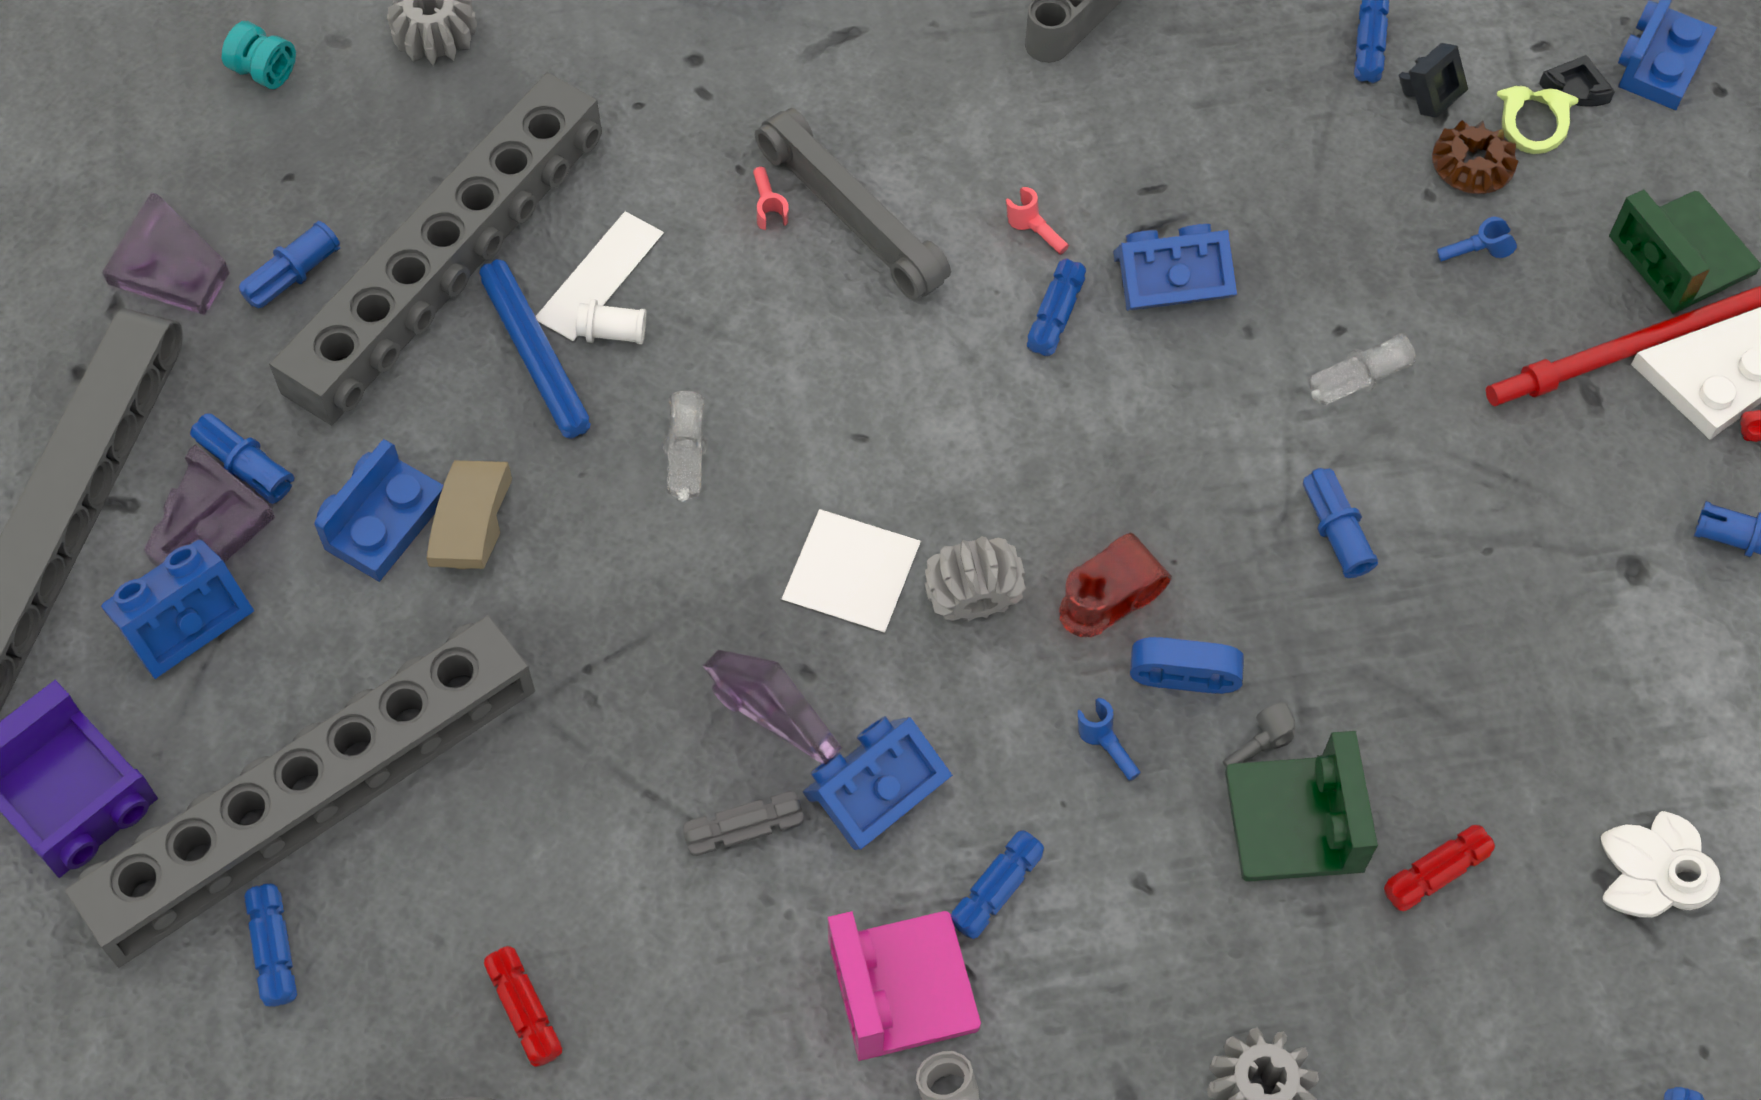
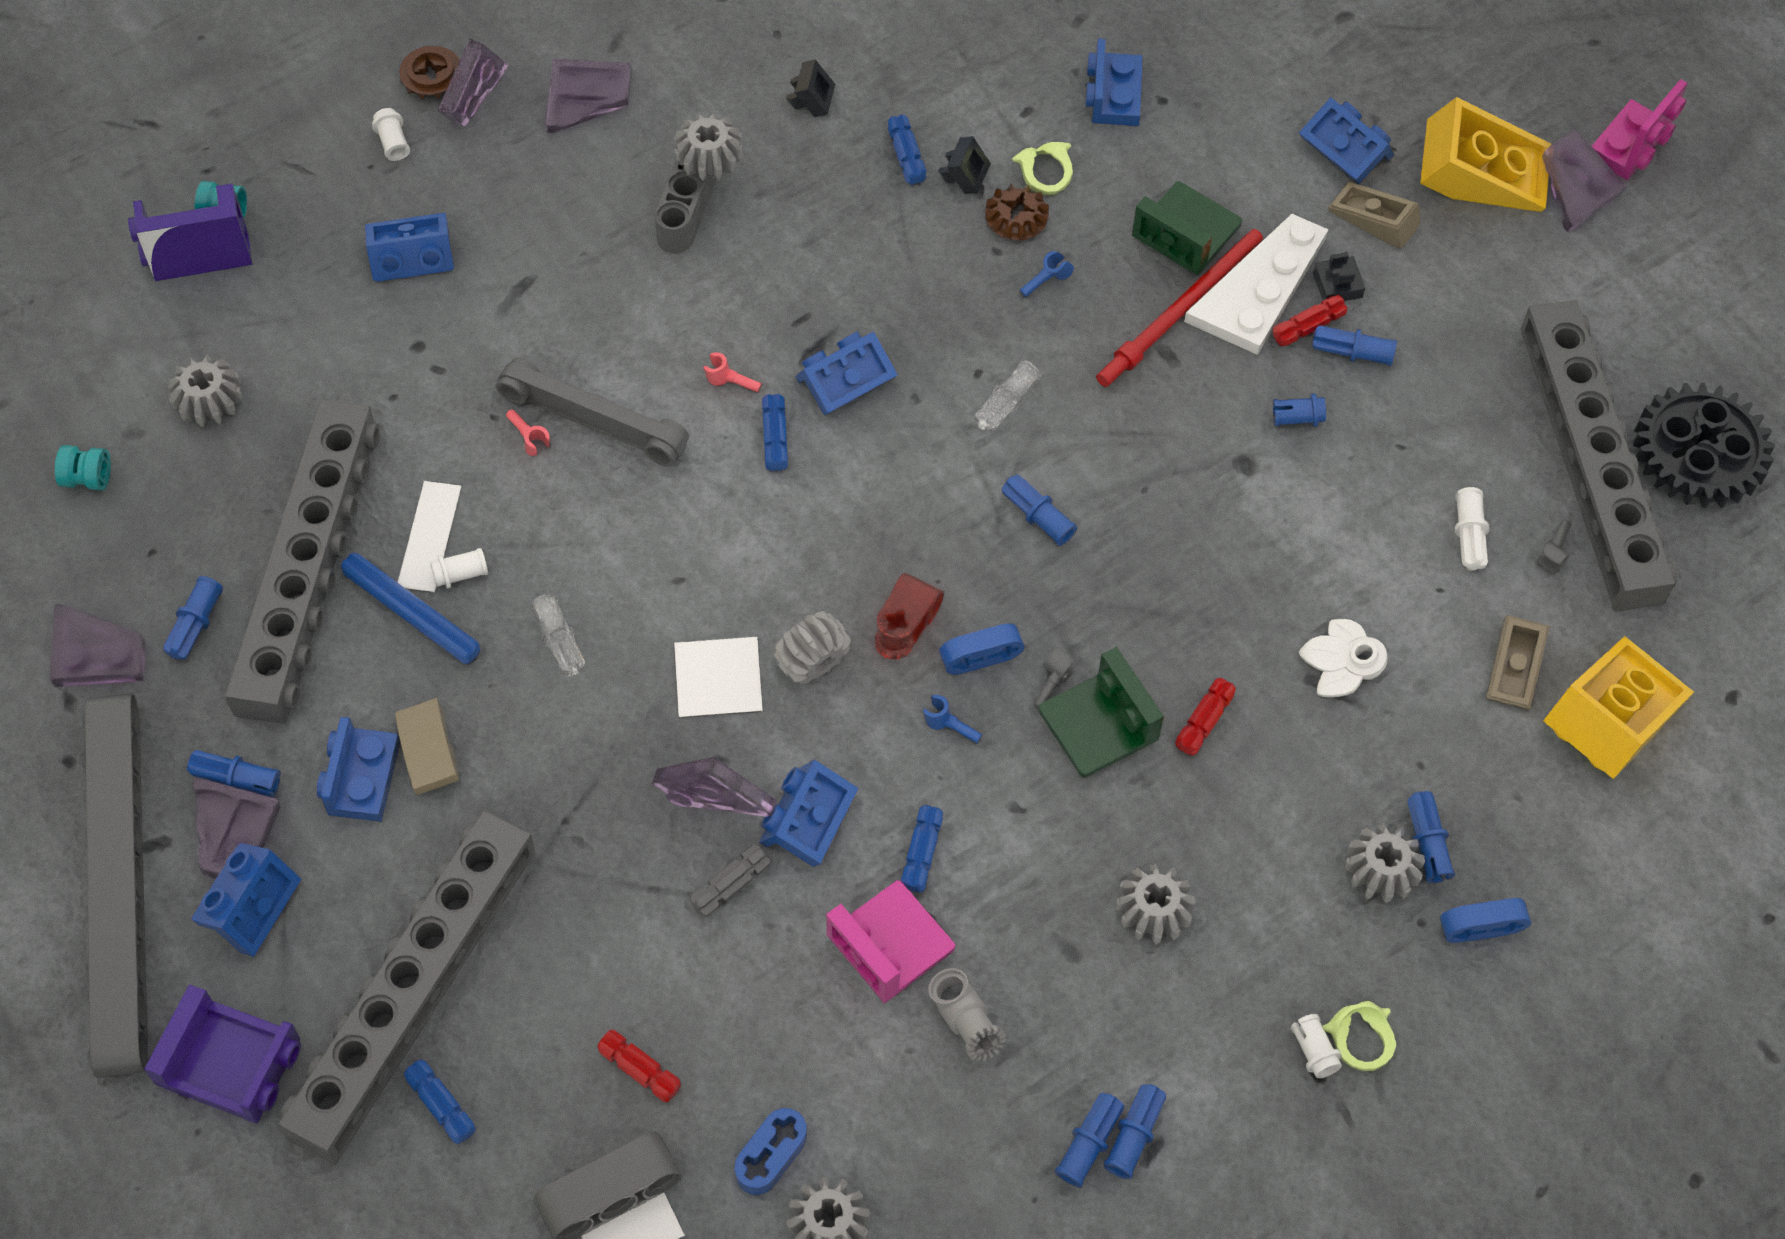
camera: 25 degrees left, 0 degrees up
(1580, 80) = (1064, 128): black tile -> none

